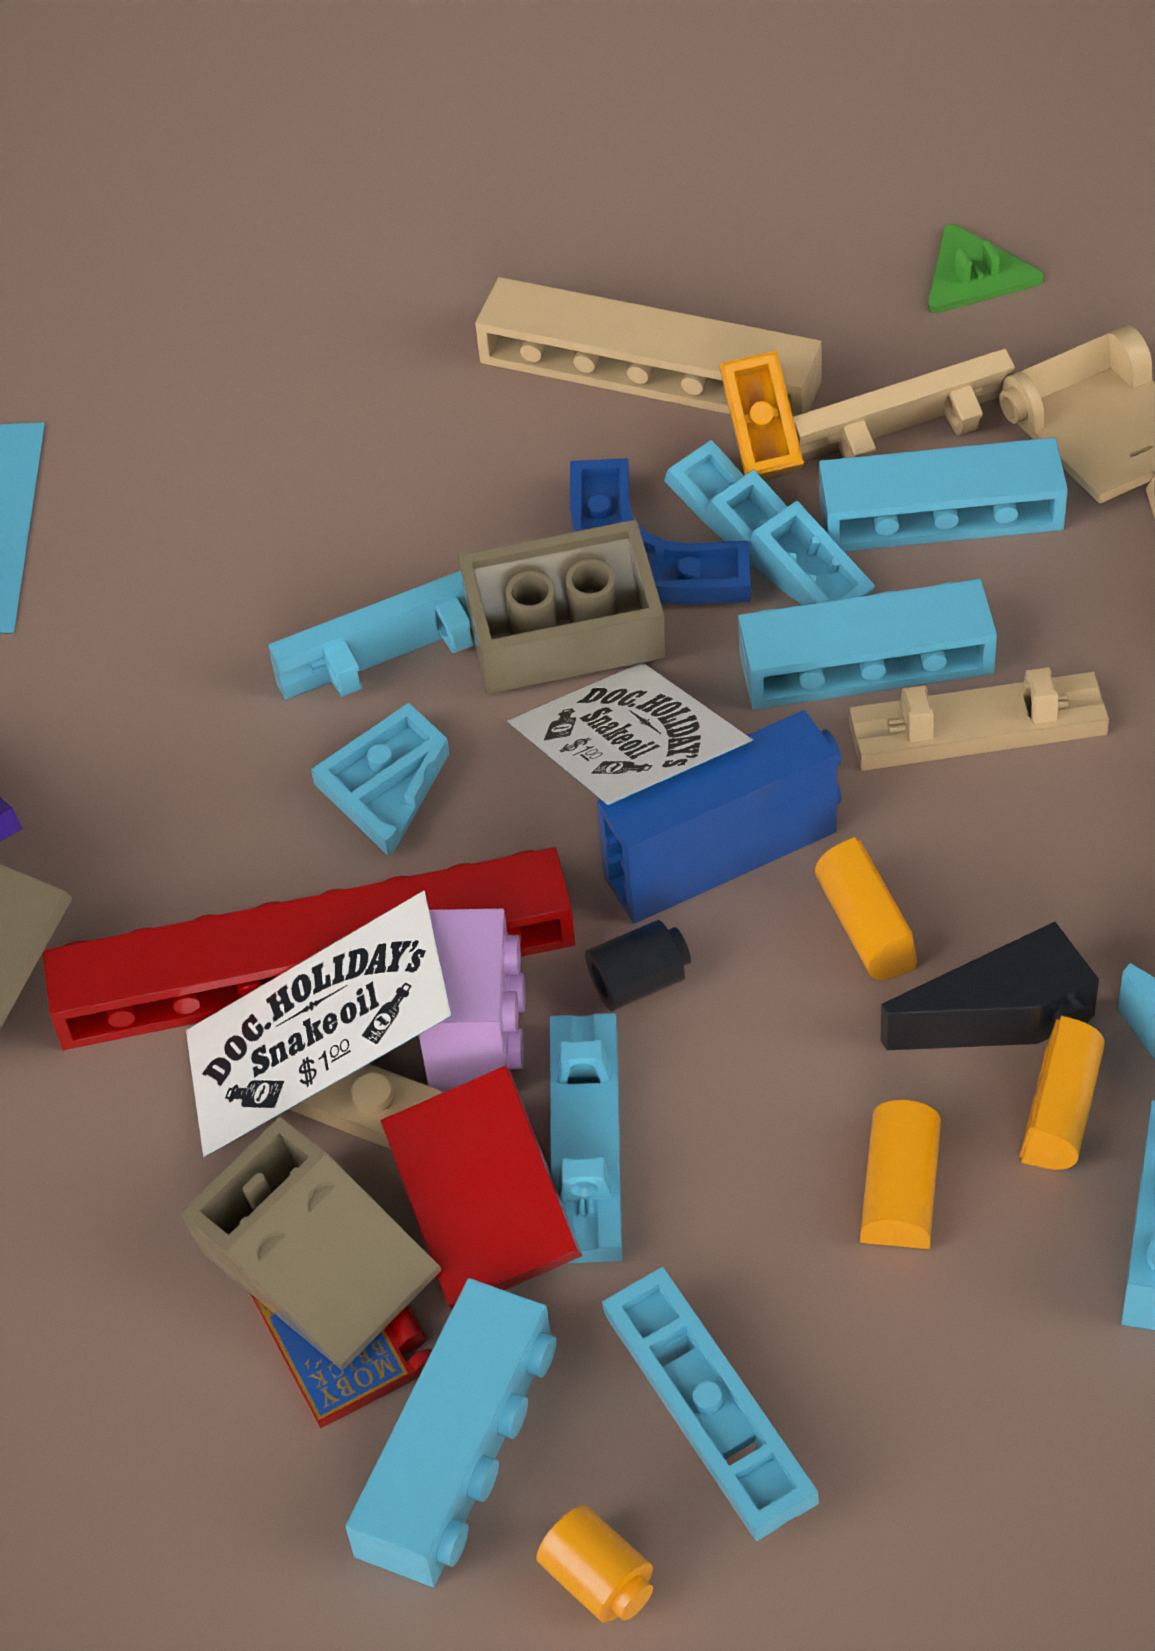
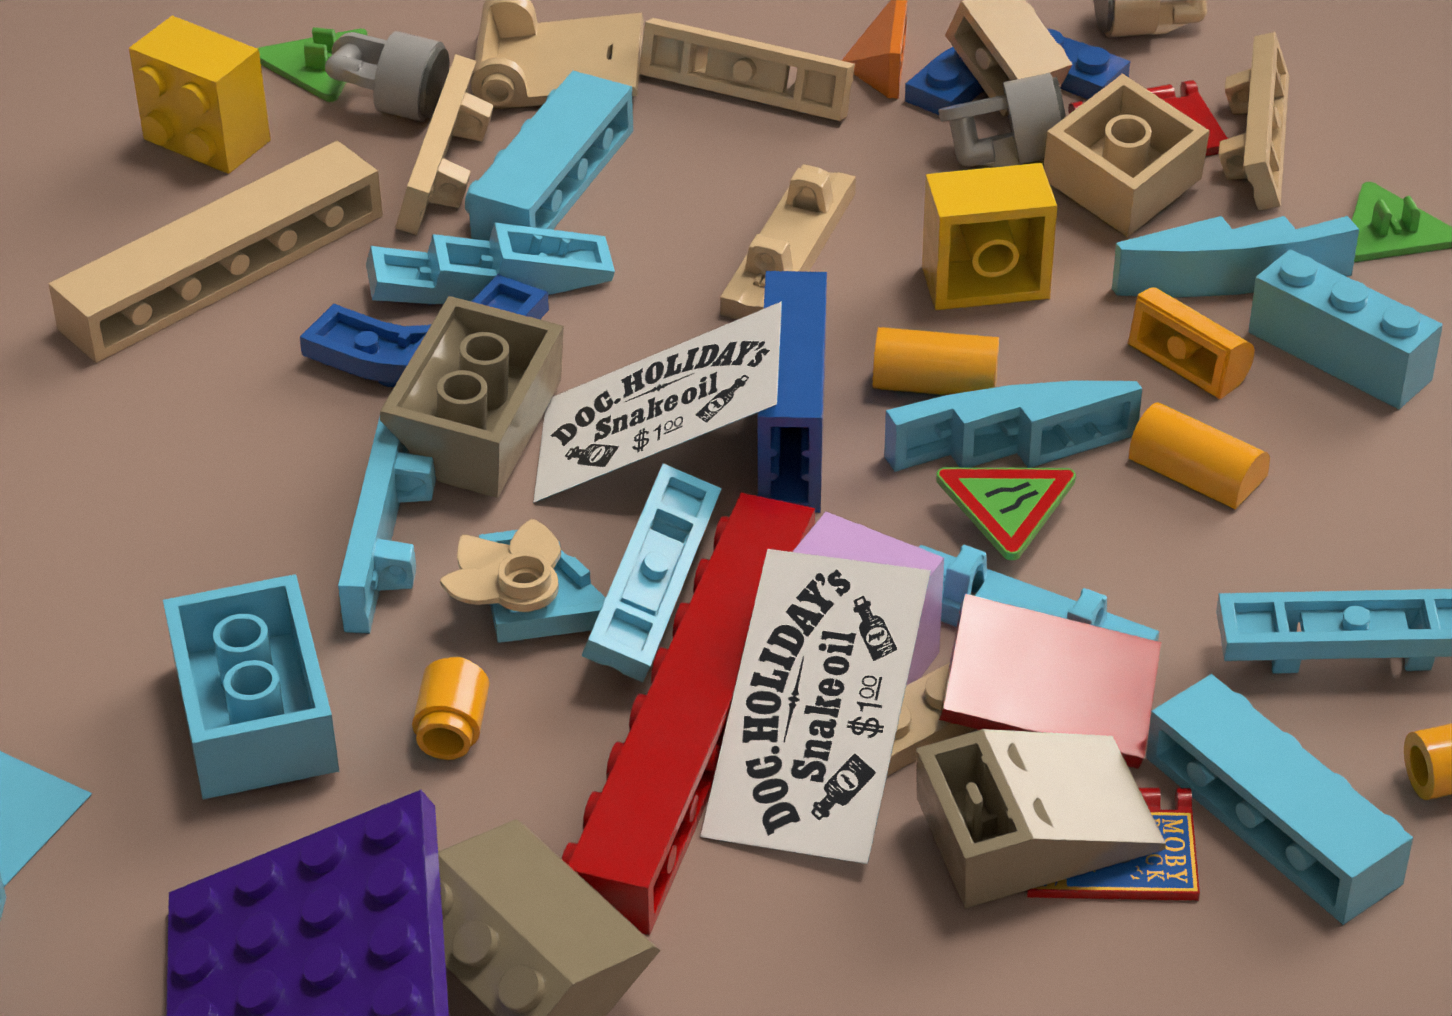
camera: 65 degrees left, 10 degrees down
(136, 654) = (251, 686): none -> medium azure brick
(207, 790) = (450, 707): none -> light orange brick
(364, 735) = (513, 575): none -> tan plate
(432, 835) = (651, 573): none -> medium azure hinge
(637, 964) = (886, 500): black brick -> none
(708, 1051) = (1007, 502): none -> piece
(761, 415) = (384, 201): light orange brick -> none
(807, 224) = (200, 94): none -> yellow brick
(837, 1016) = (1027, 419): none -> medium azure slope
(867, 644) = (665, 261): medium azure brick -> none
(962, 317) = (402, 71): none -> light grey piece
(997, 998) = (1083, 318): black slope -> none
(1057, 854) = (988, 236): none -> yellow brick

